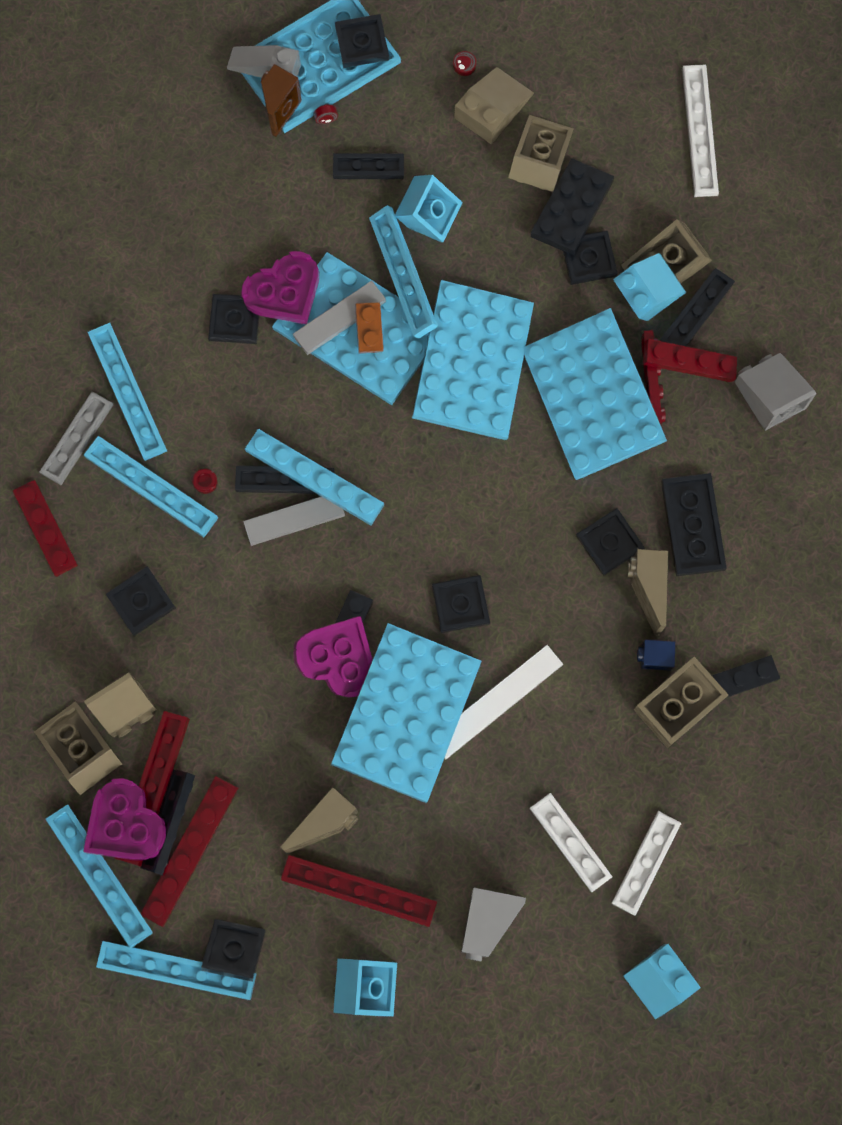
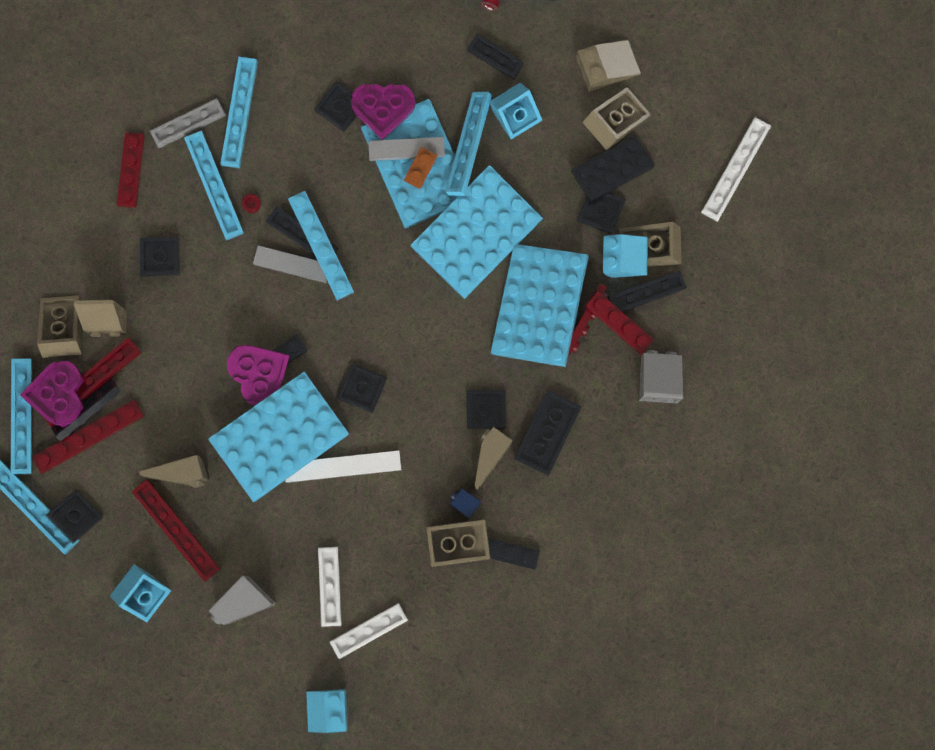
camera: 30 degrees right, 5 degrees up
(464, 63) = (607, 24): dark red tile -> none

